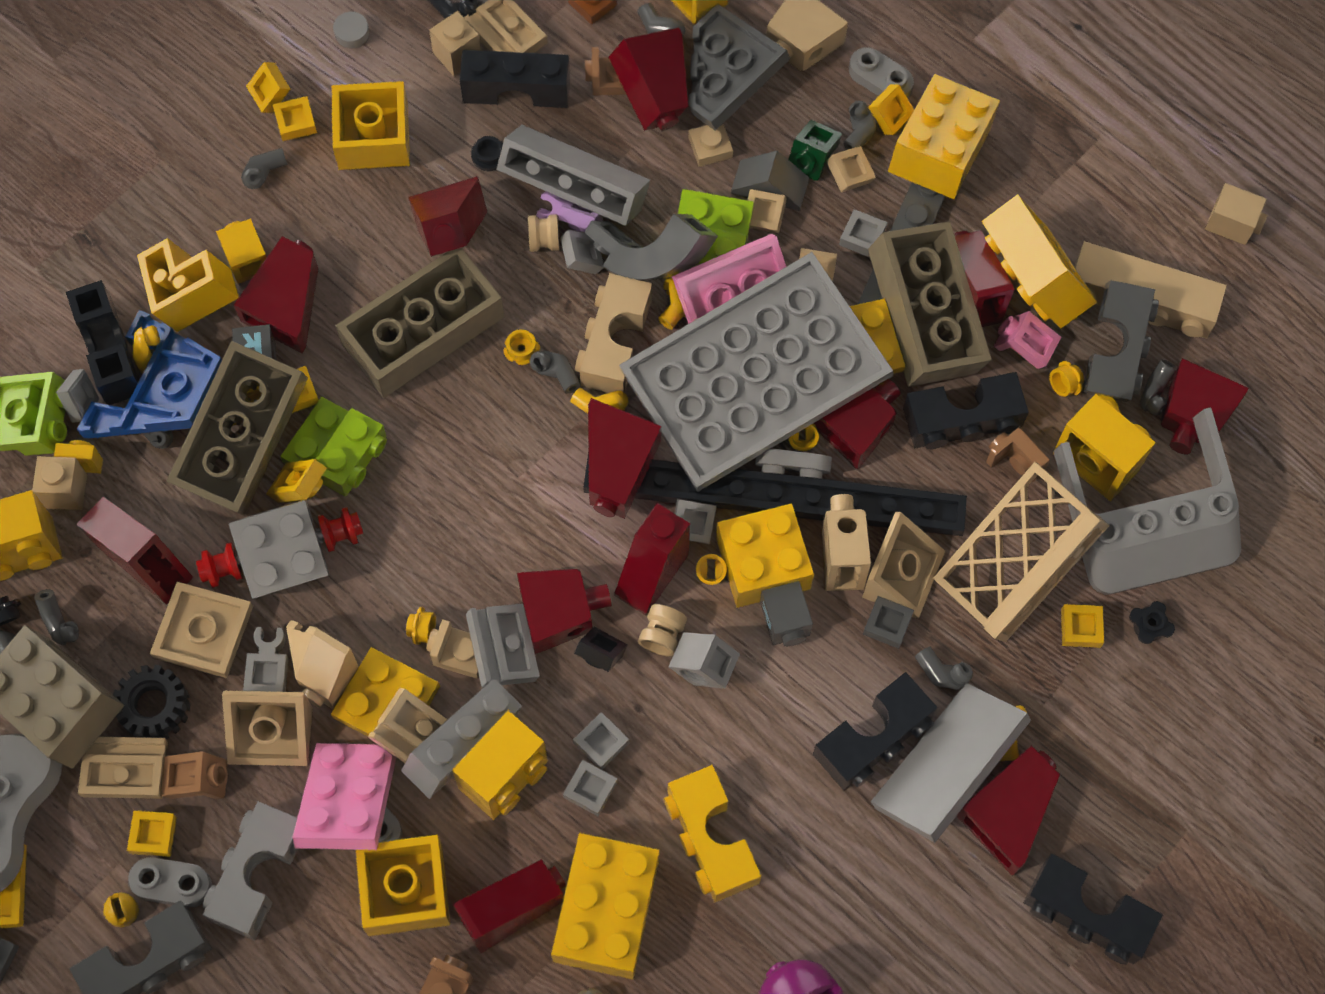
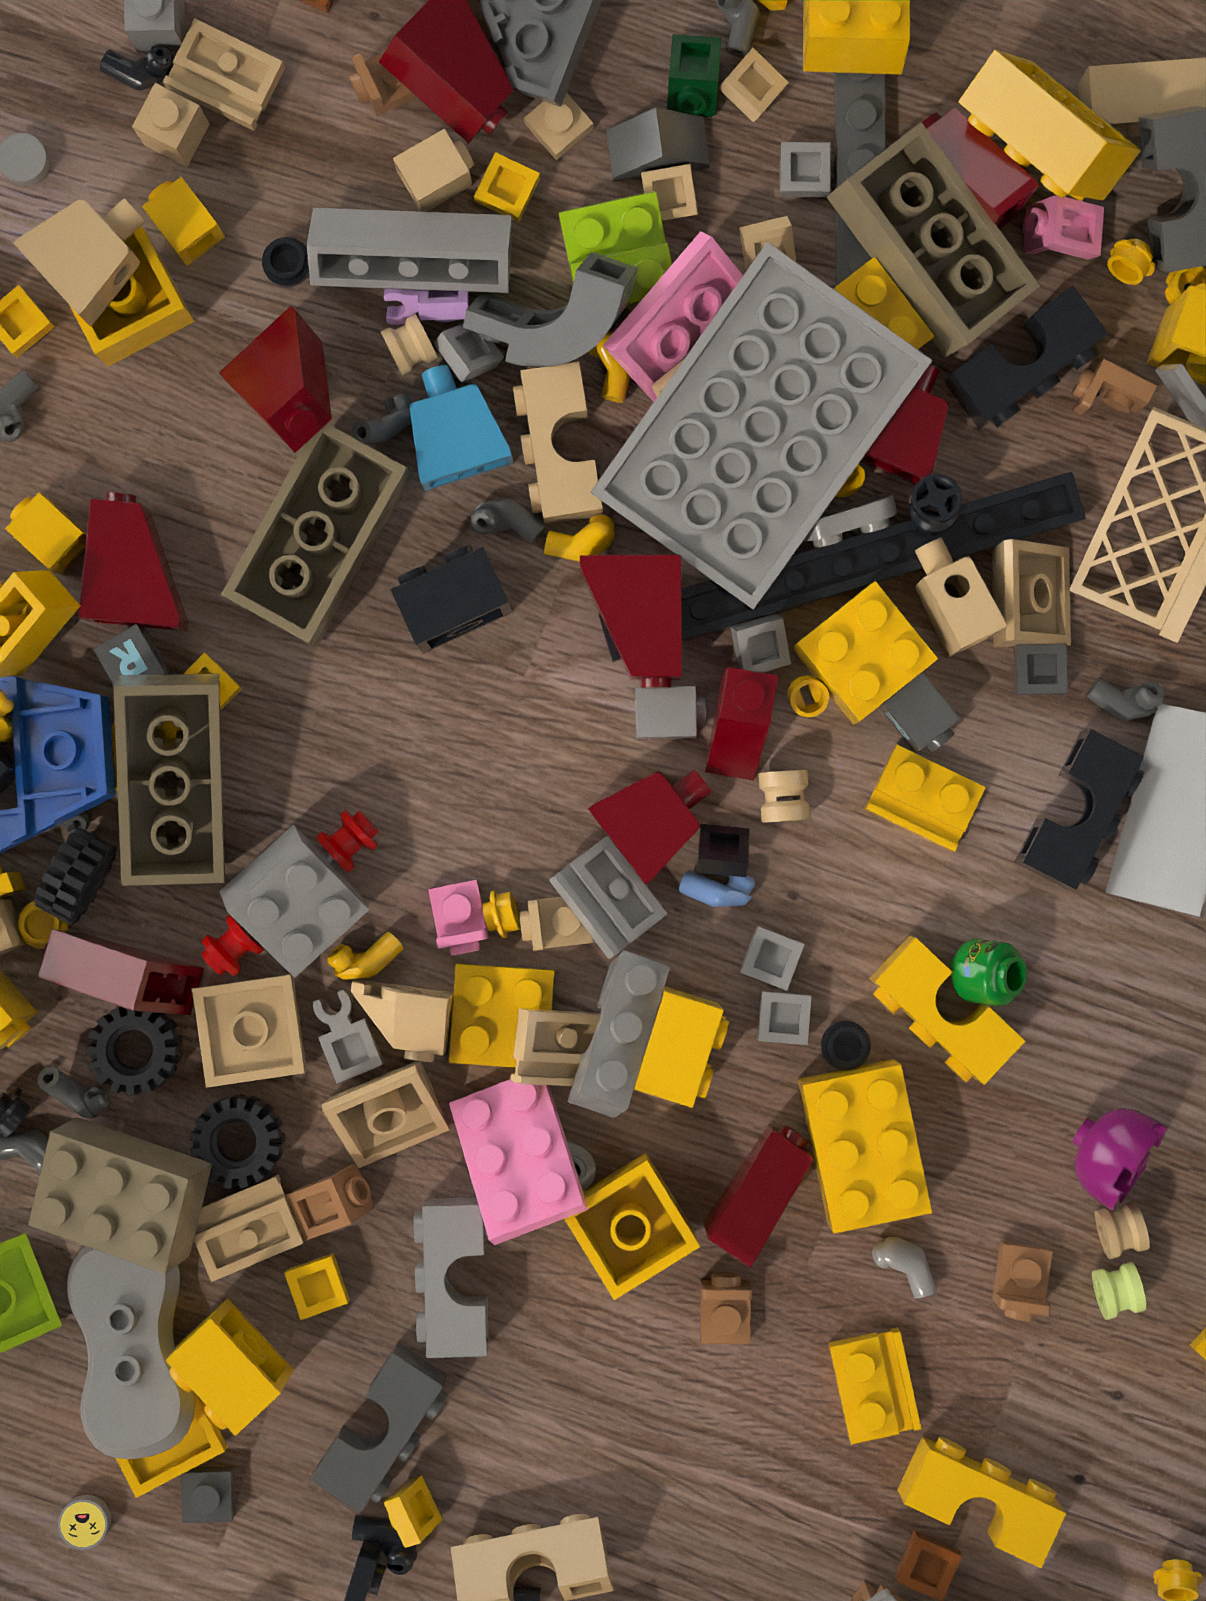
camera: 25 degrees left, 20 degrees up
(56, 855) = (229, 1368): none -> yellow brick
(95, 490) = (37, 924): none -> yellow plate
(102, 589) = (117, 1074): none -> black tyre
(129, 908) = (331, 1373): yellow hinge -> none
(138, 468) = (75, 876): none -> black tyre
(168, 881) = (362, 1327): light grey plate -> none
(297, 481) = (272, 808): yellow plate -> none
(316, 618) = (364, 964): none -> yellow arm
(339, 441) = (289, 735): lime plate -> none
(357, 83) = (84, 254): none -> tan torso
(389, 616) = (458, 917): none -> bright pink bracket
(434, 102) = (183, 220): none -> yellow brick
(490, 396) = (450, 598): none -> black brick
(501, 279) = (385, 428): none -> dark grey arm
(517, 339) = (439, 505): yellow plate -> none
(536, 74) = (244, 148): black arch -> none
(546, 299) = (454, 432): none -> dark azure torso
(581, 678) = (715, 893): none -> medium blue arm
(604, 538) = (668, 713): none -> light grey brick
(614, 136) = (435, 170): none -> tan brick
(627, 827) = (845, 1045): none -> black plate
(657, 165) = (507, 187): none -> yellow plate
(704, 660) = (850, 815): light grey brick -> none
(755, 816) = (988, 972): none -> green head
(767, 679) = (924, 798): none -> yellow plate
(866, 469) = (937, 493): none -> black wheel

